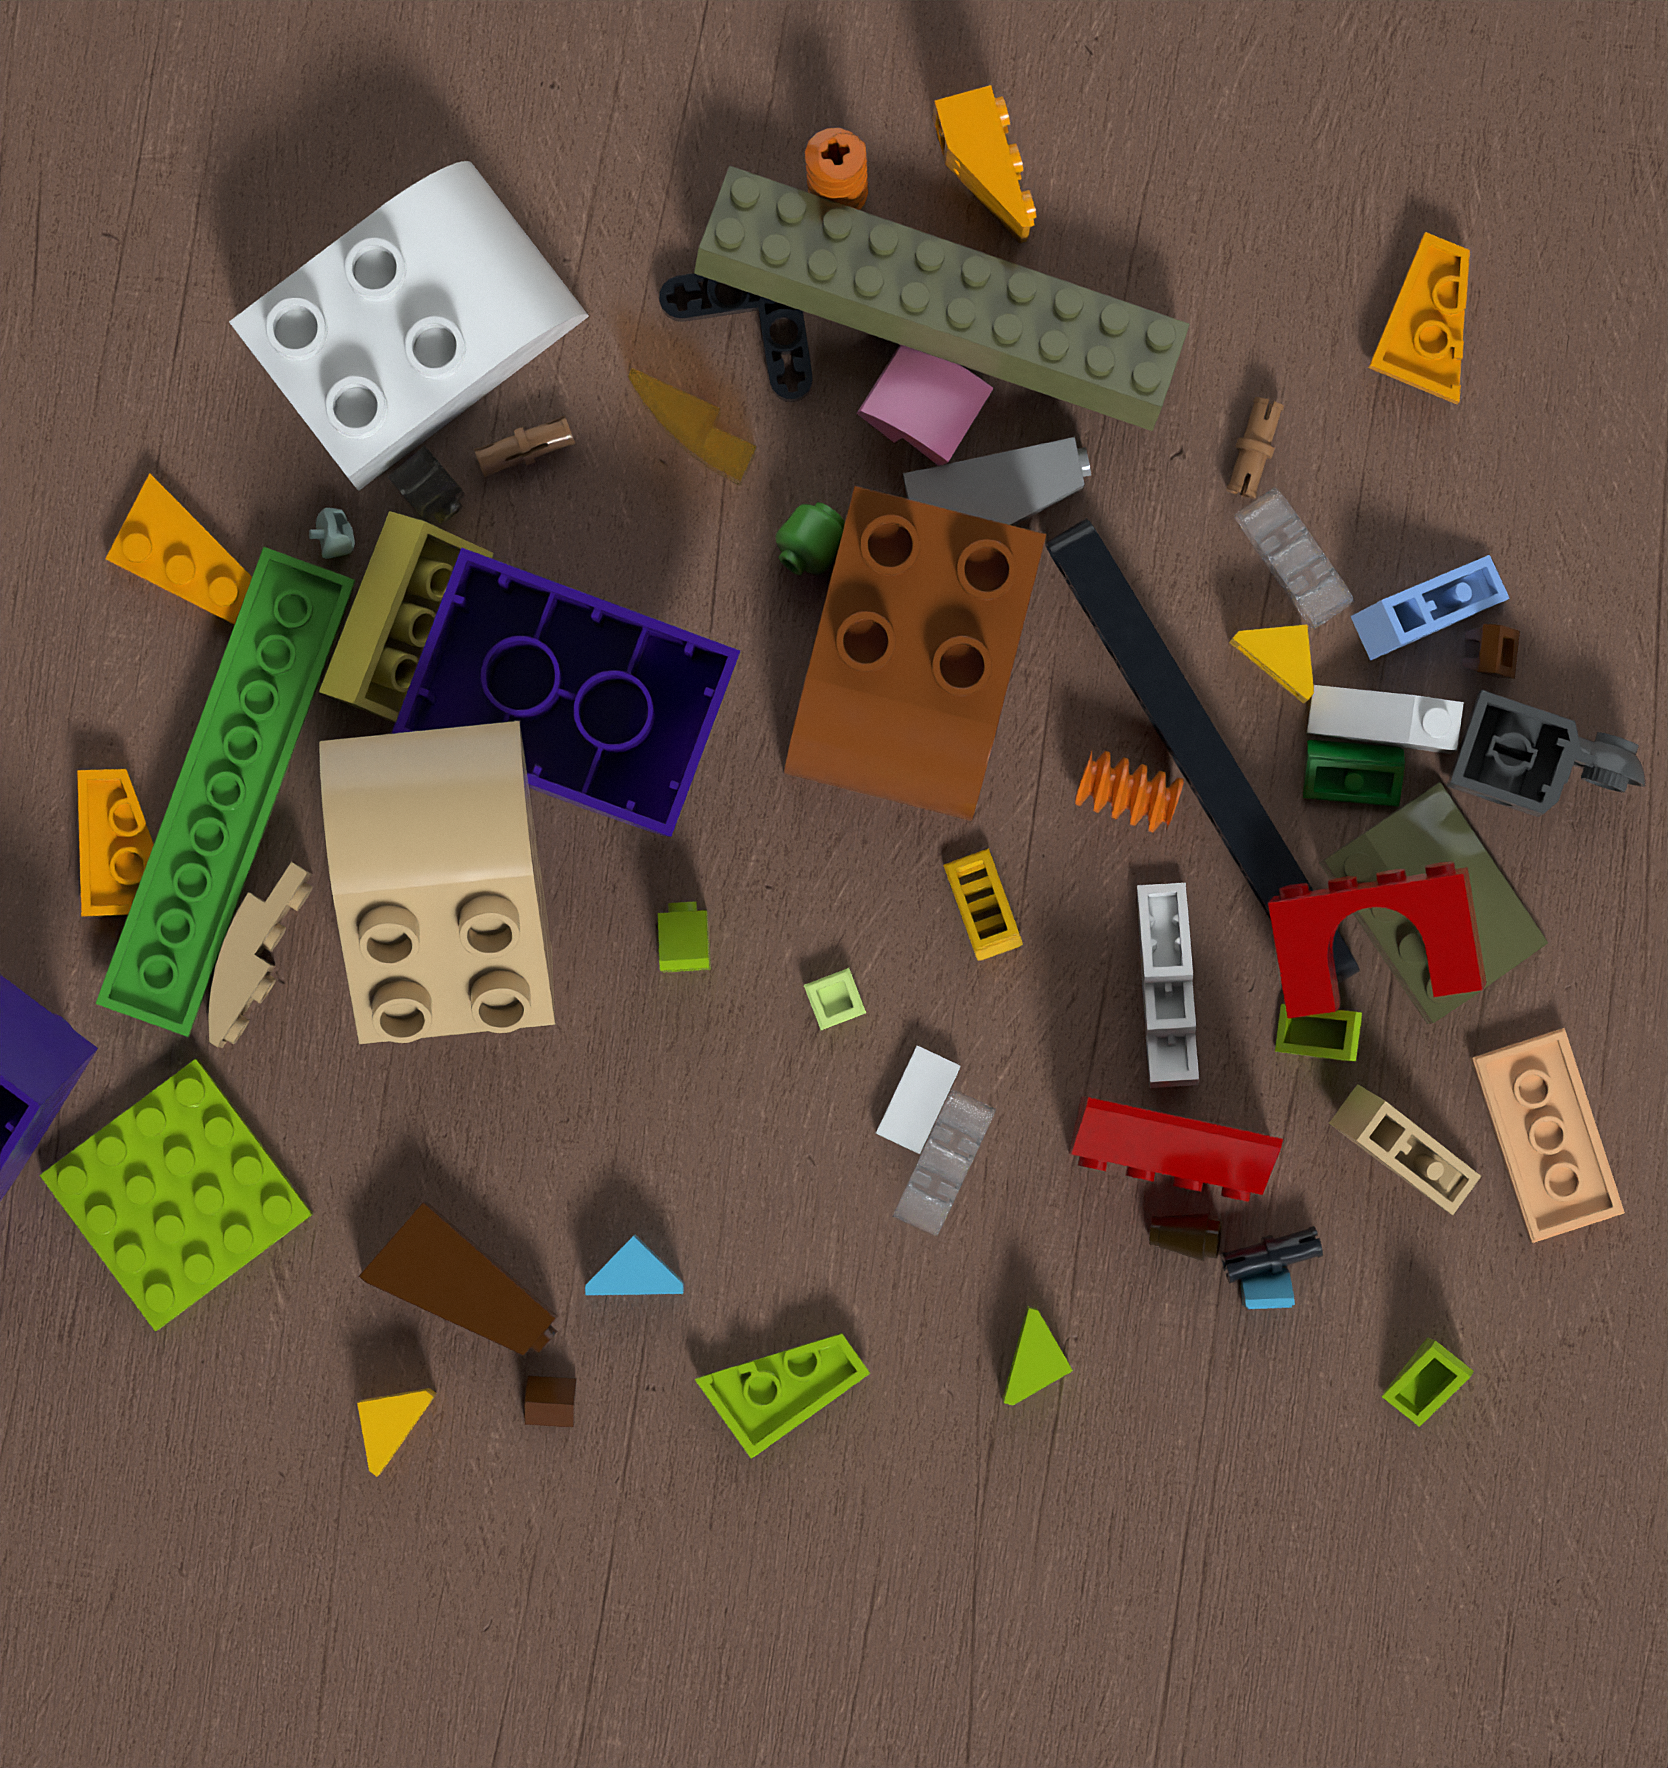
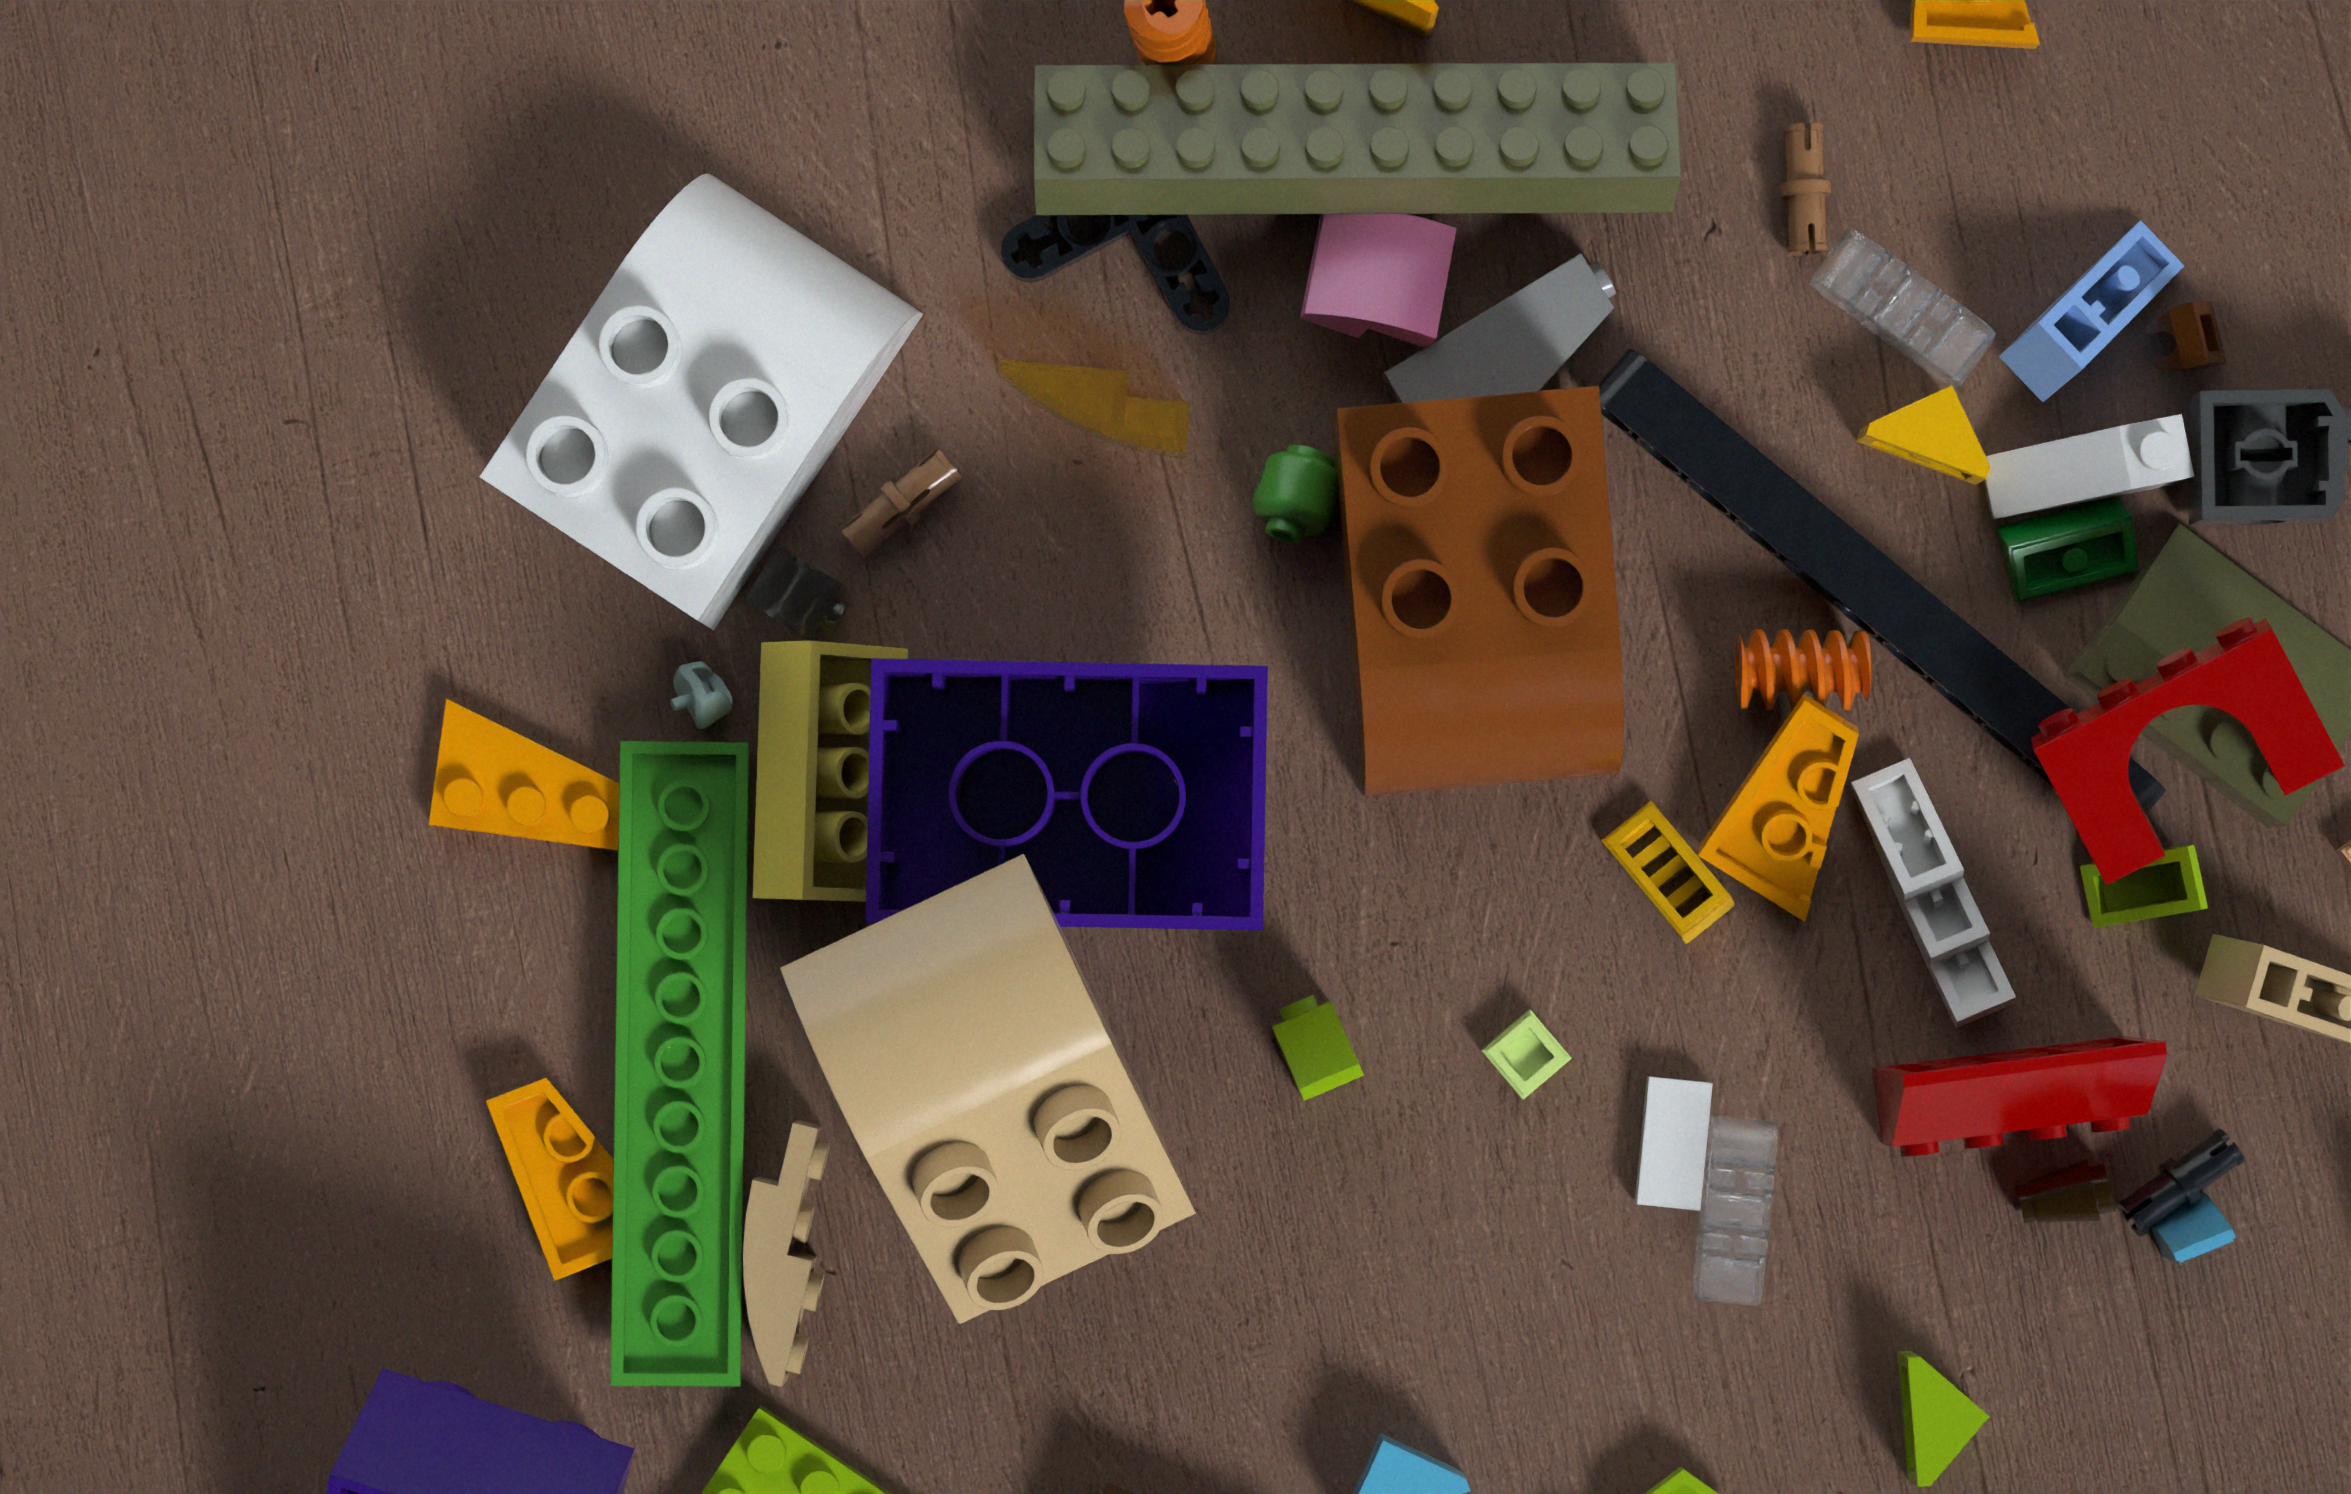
camera: 15 degrees left, 0 degrees up
(1081, 886) = (1784, 809): none -> light orange wing

